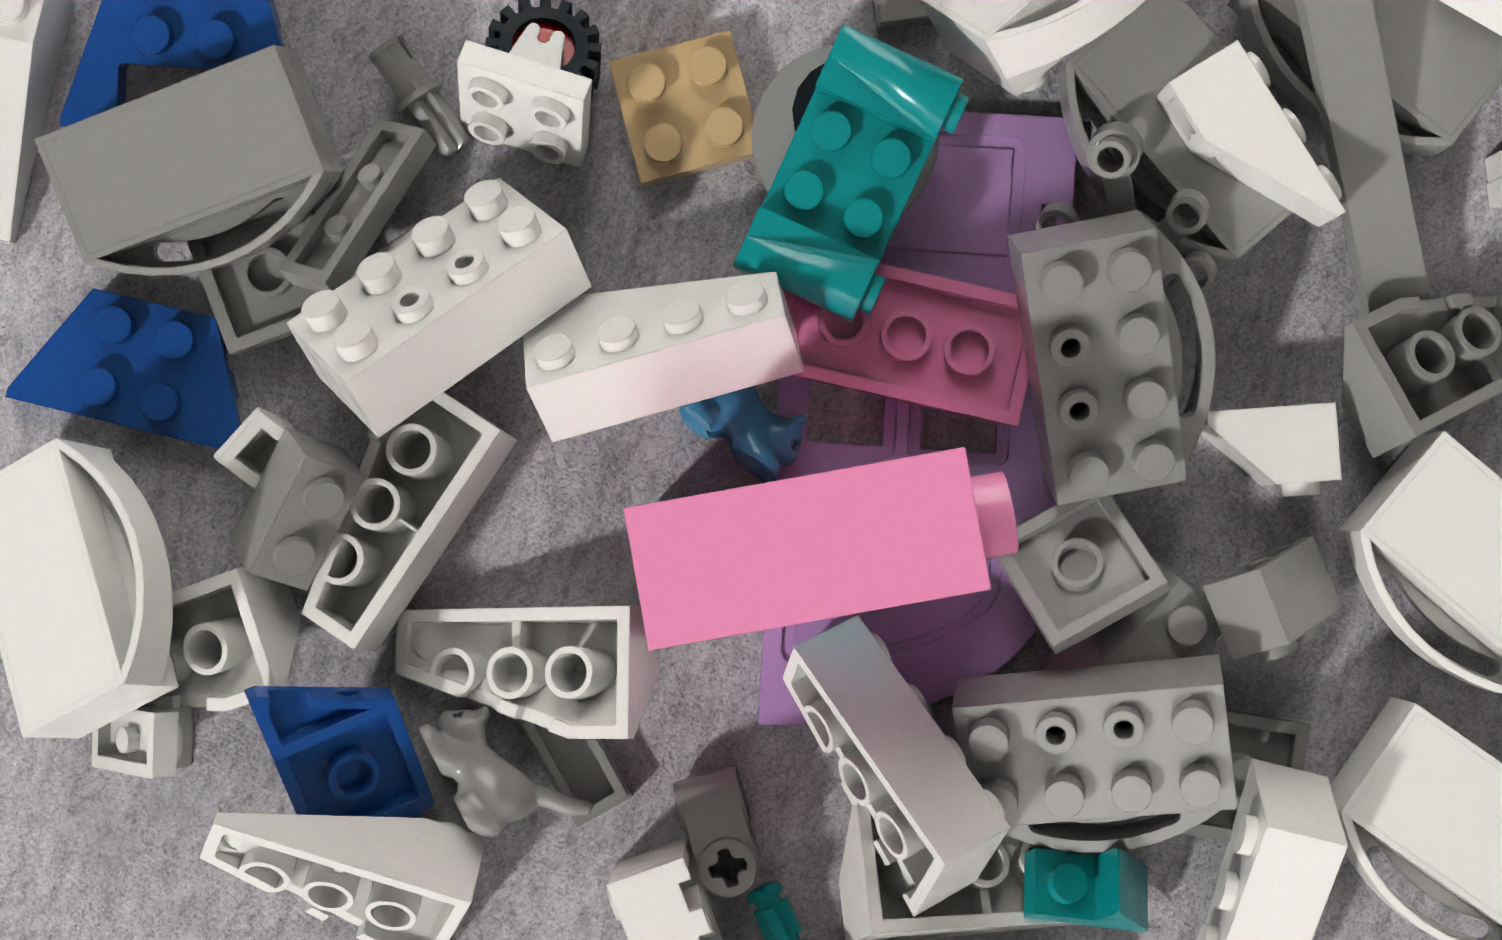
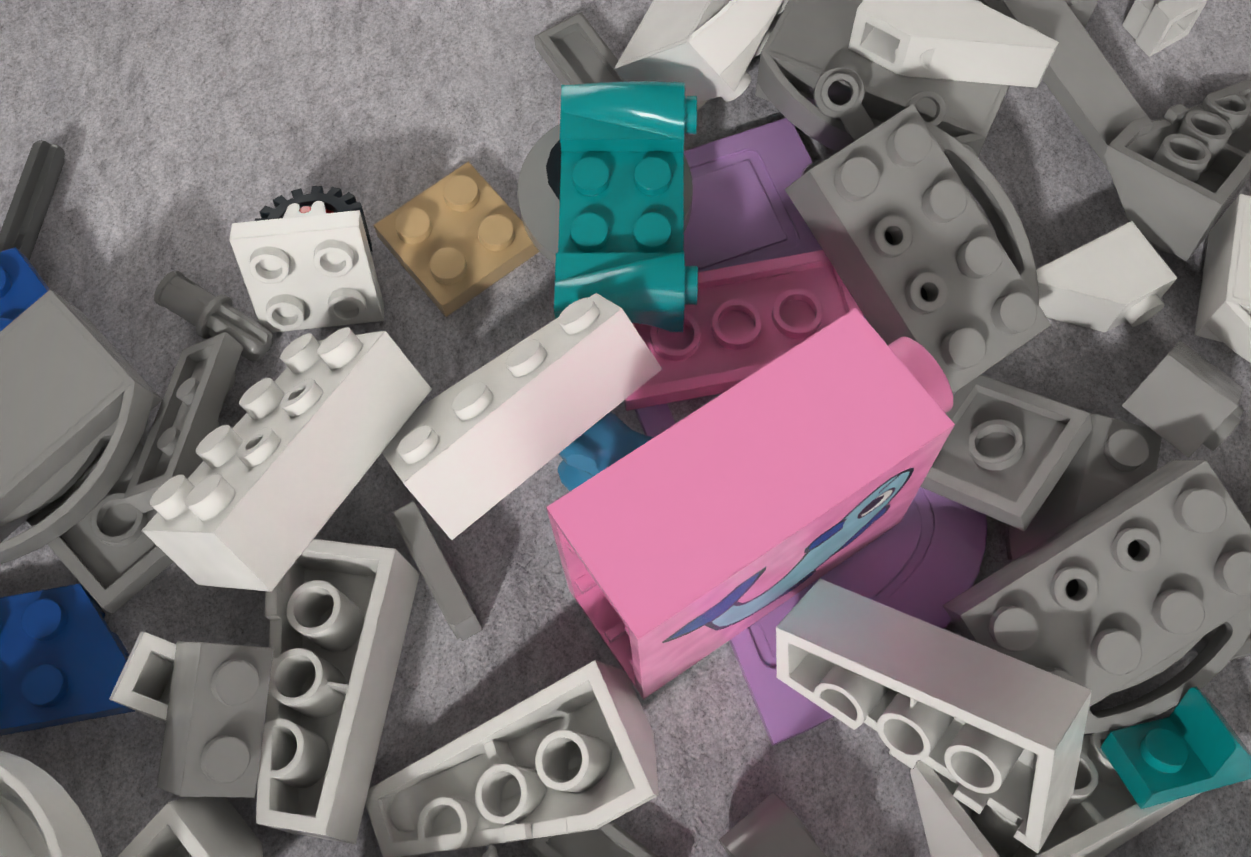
camera: 25 degrees left, 20 degrees down
(531, 454) = (436, 572): none -> light grey tile

